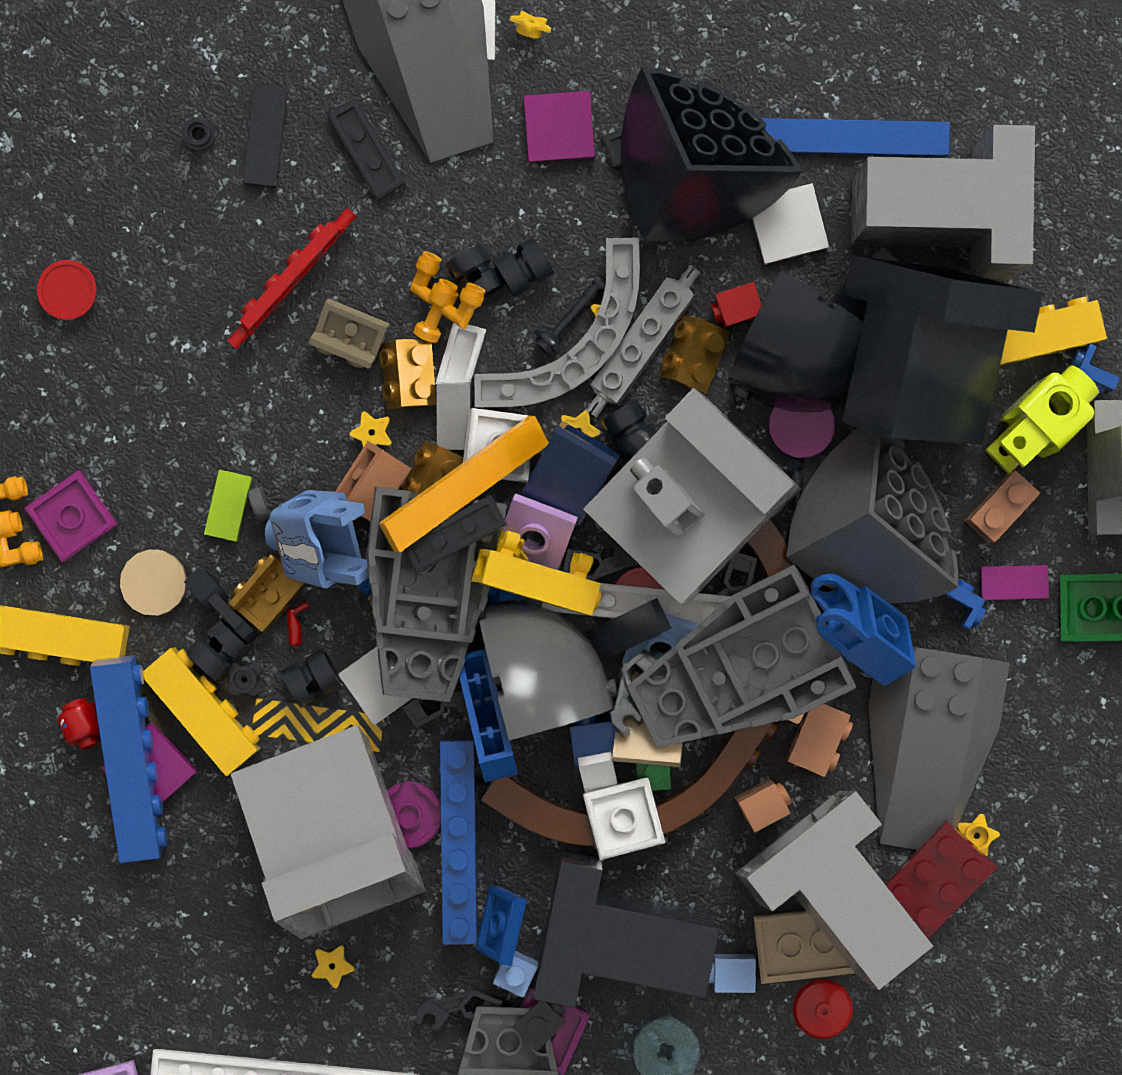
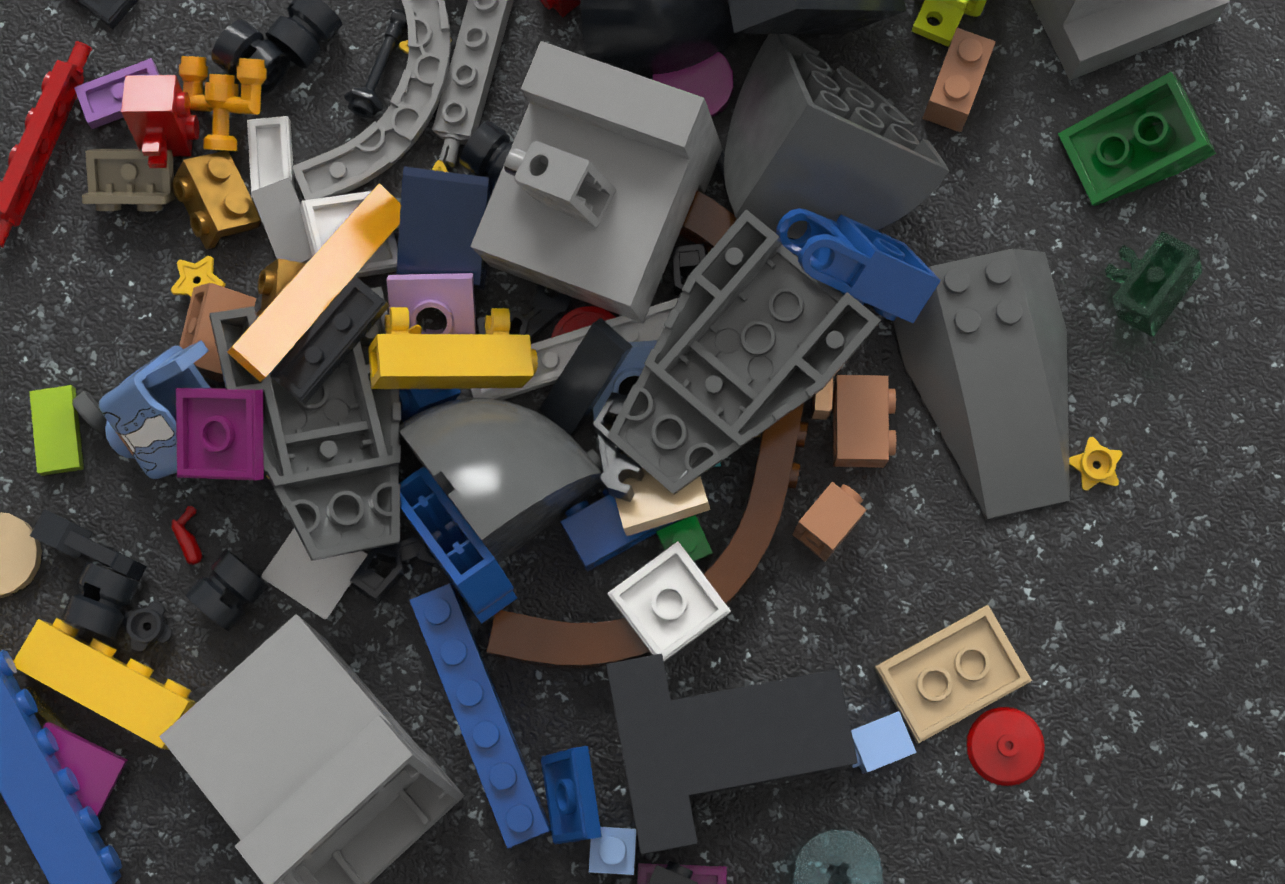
camera: 20 degrees left, 10 degrees down
(265, 593) = (135, 511): pearl gold bracket -> none
(310, 722) = (216, 656): sticker -> none
(351, 578) = (220, 433): none -> magenta tile
(366, 261) = (103, 96): none -> medium lavender plate
(389, 300) = (159, 117): none -> red brick
(416, 811) = (416, 703): magenta tile -> none
(597, 771) = (614, 559): white tile -> none
(694, 353) = (524, 33): pearl gold bracket -> none
(839, 889) = (970, 576): light grey piece -> none
(939, 877) = (1074, 531): dark red plate -> none
(974, 603) = (960, 196): blue bracket -> none
(1014, 582) = (1009, 161): magenta tile -> none
(1077, 724) = (1155, 283): none -> clear green brick

